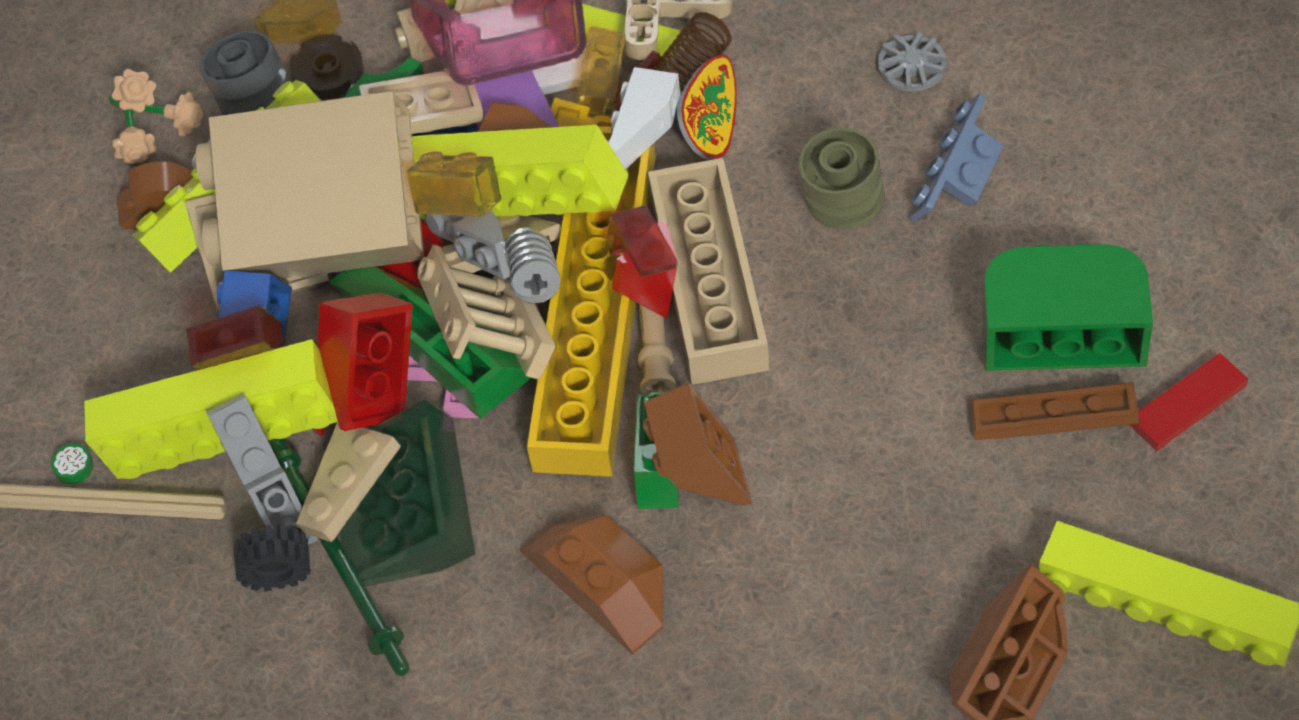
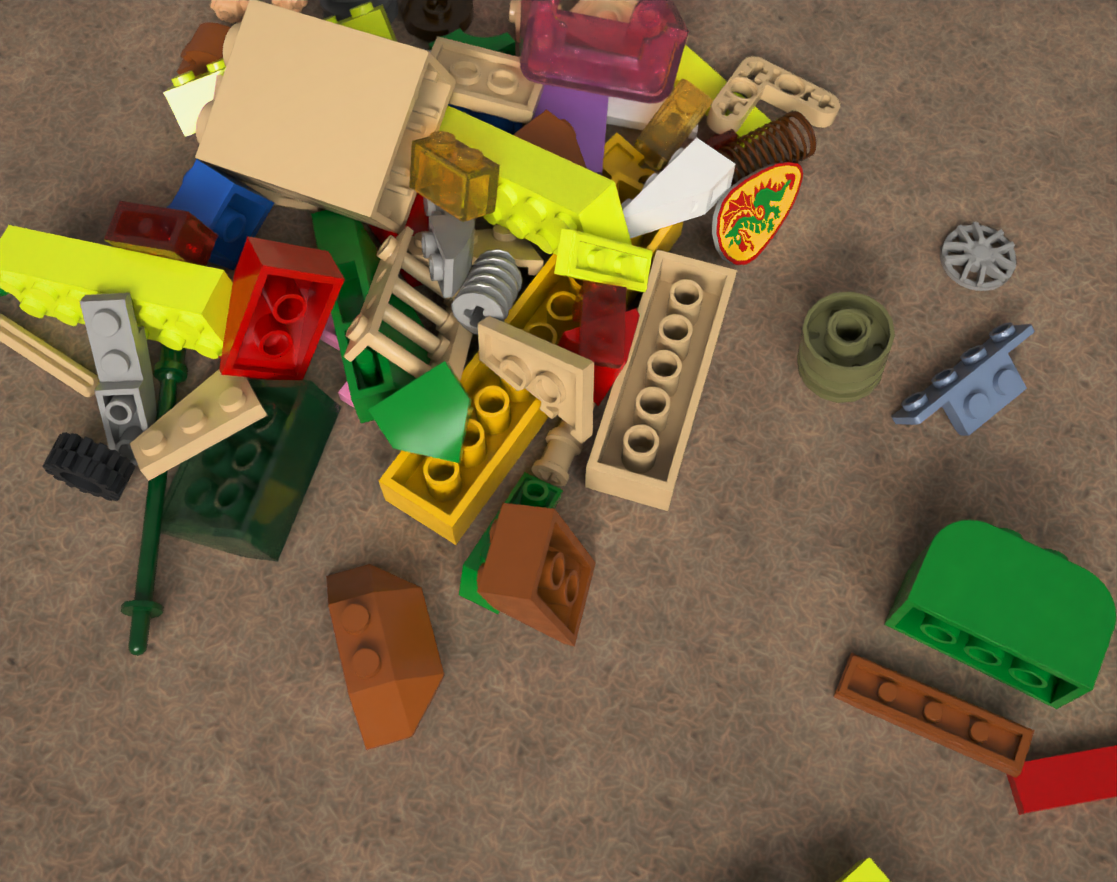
camera: 20 degrees right, 10 degrees up
(542, 373) = (427, 415): none -> green slope
(614, 298) = (547, 371): none -> tan wing
(616, 192) = (602, 260): none -> neon yellow tile

